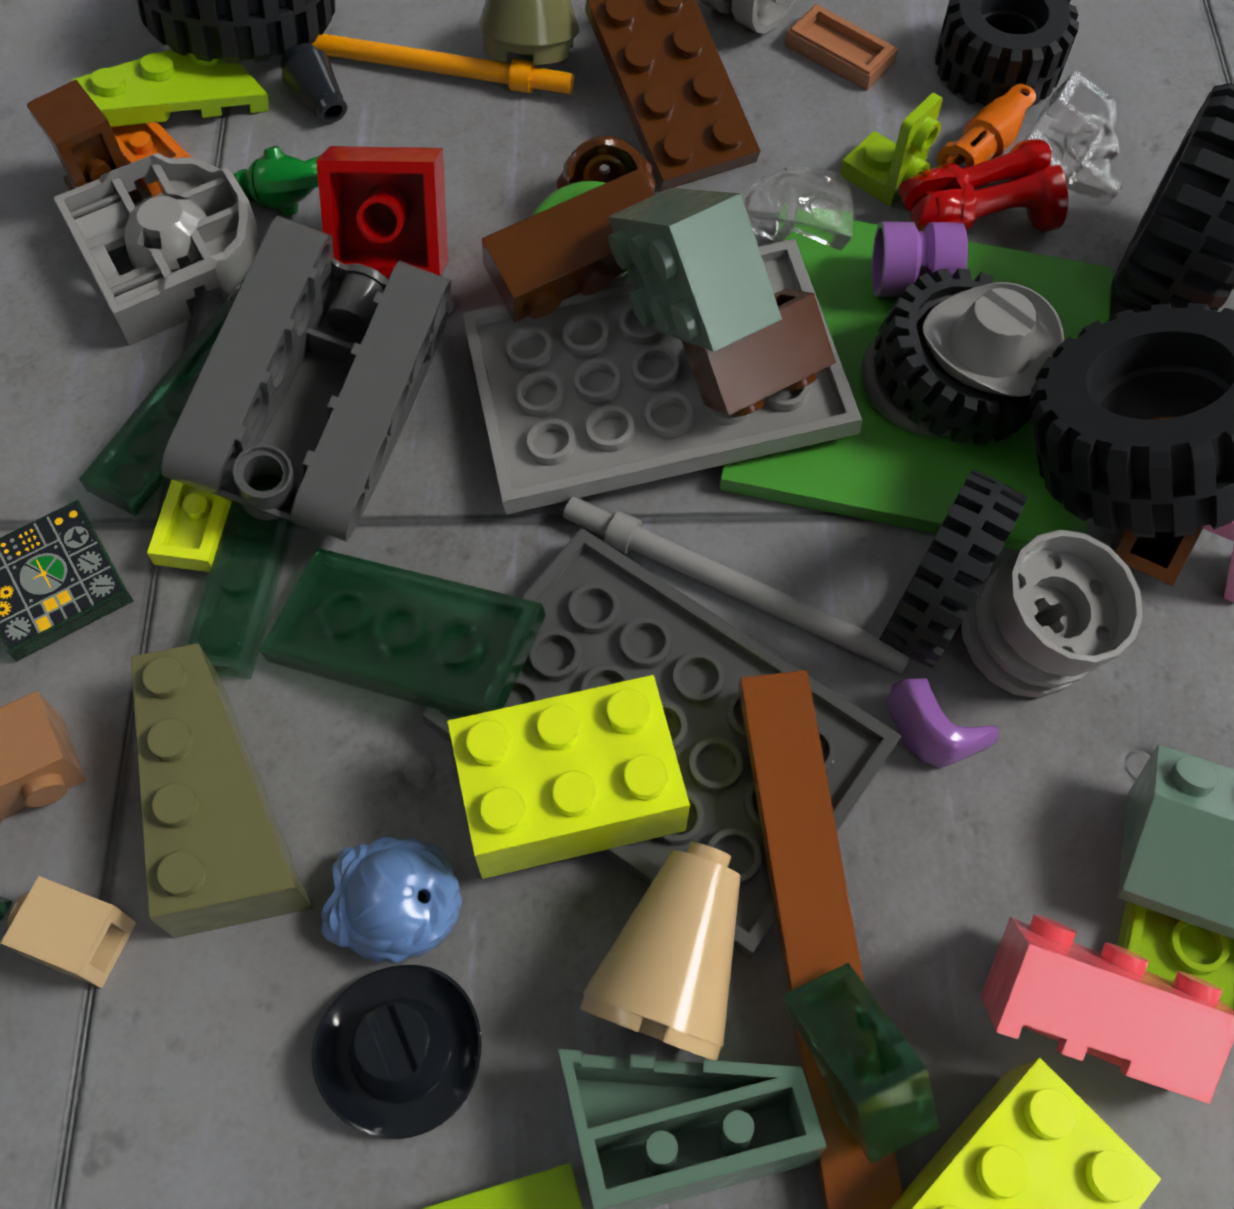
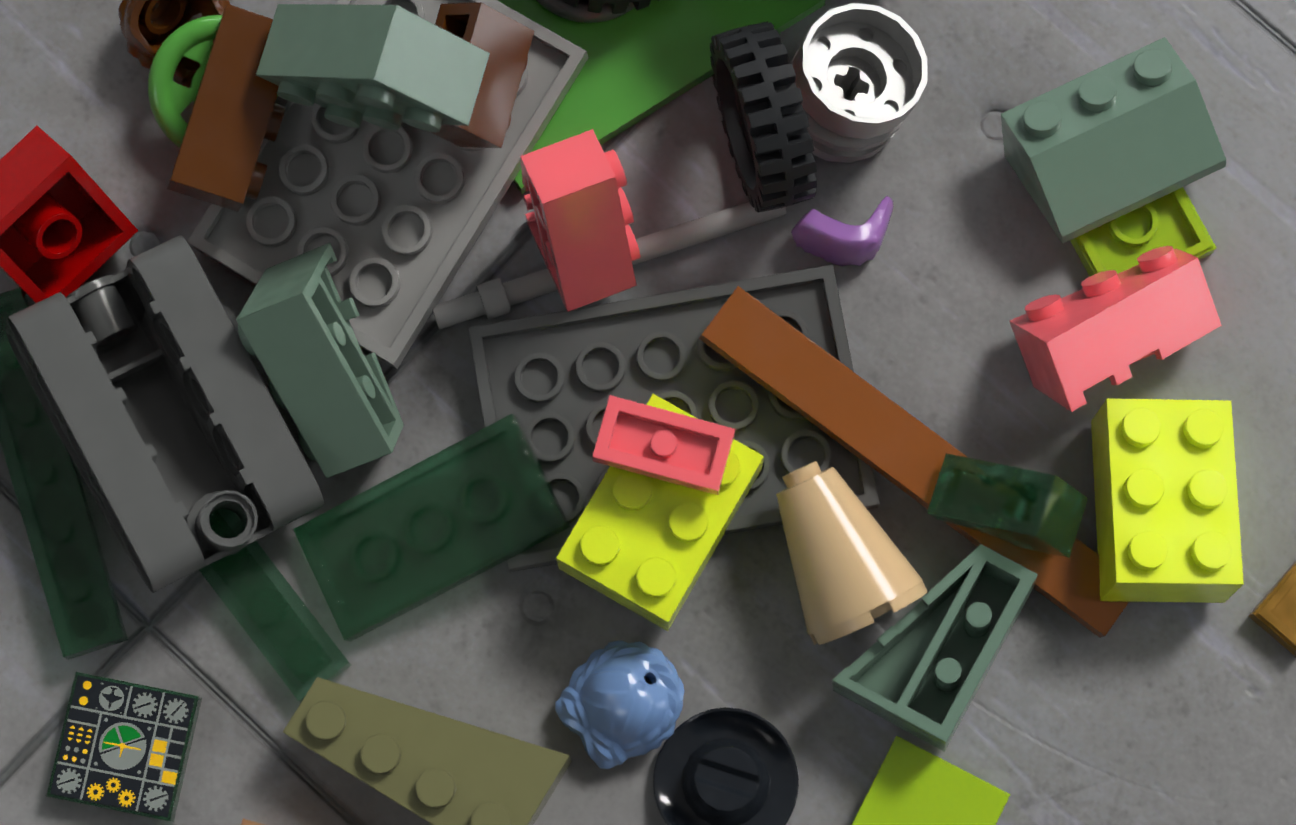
camera: 45 degrees left, 15 degrees up
(188, 528) = (185, 609): neon yellow plate -> none
(447, 445) = (317, 364): none -> sand green wedge
(615, 709) = (663, 445): none -> coral plate
(734, 501) = (581, 218): none -> coral wedge

